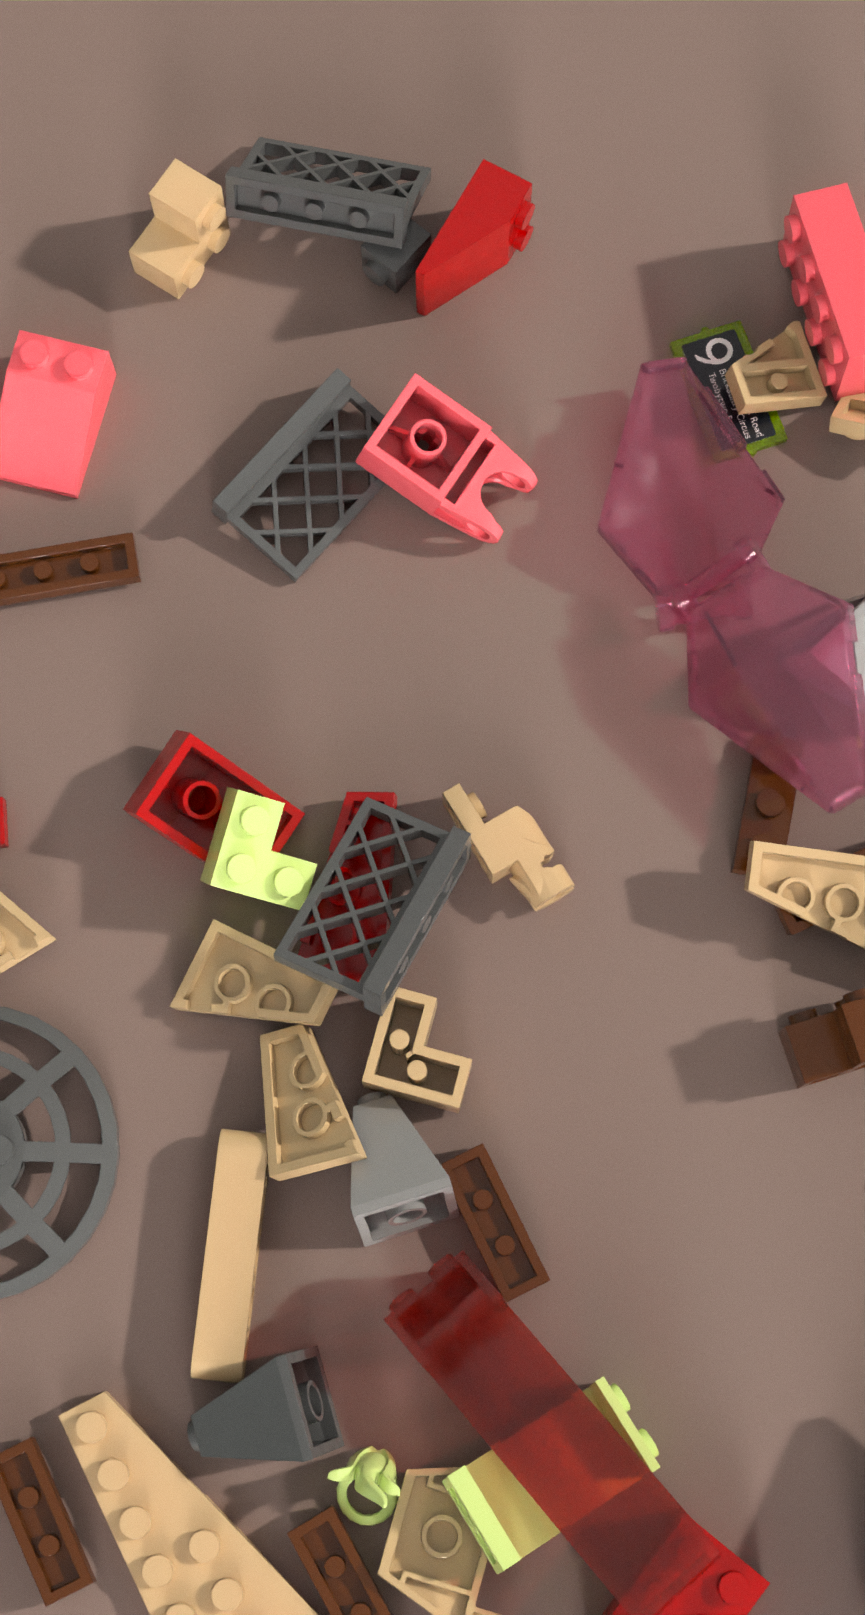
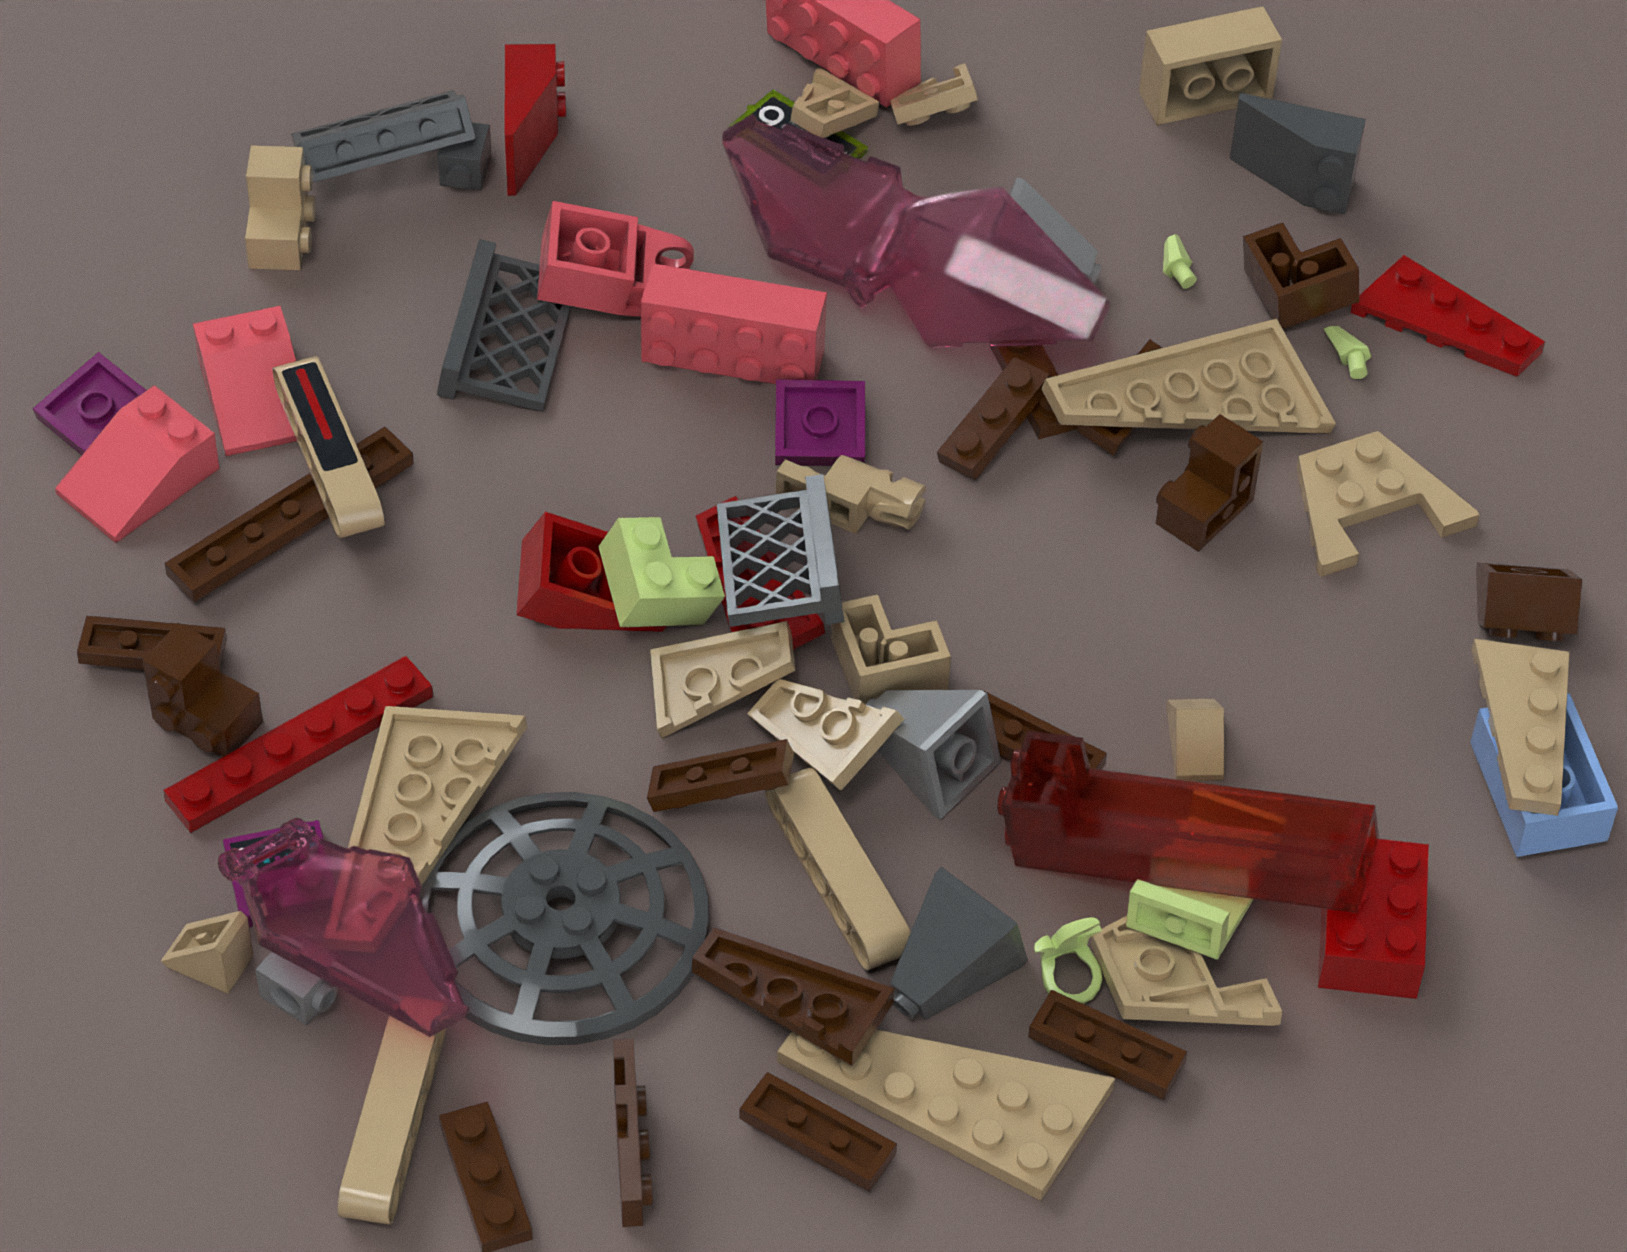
camera: 35 degrees left, 25 degrees down
(57, 536) = (328, 447): none -> beam
(111, 1383) = (803, 995): none -> reddish brown wing
(182, 1103) = (720, 775): none -> reddish brown plate
(507, 601) = (732, 325): none -> coral brick
(532, 744) = (819, 421): none -> magenta plate
(652, 1301) = (1196, 739): none -> tan slope
(695, 836) = (993, 419): none -> reddish brown plate

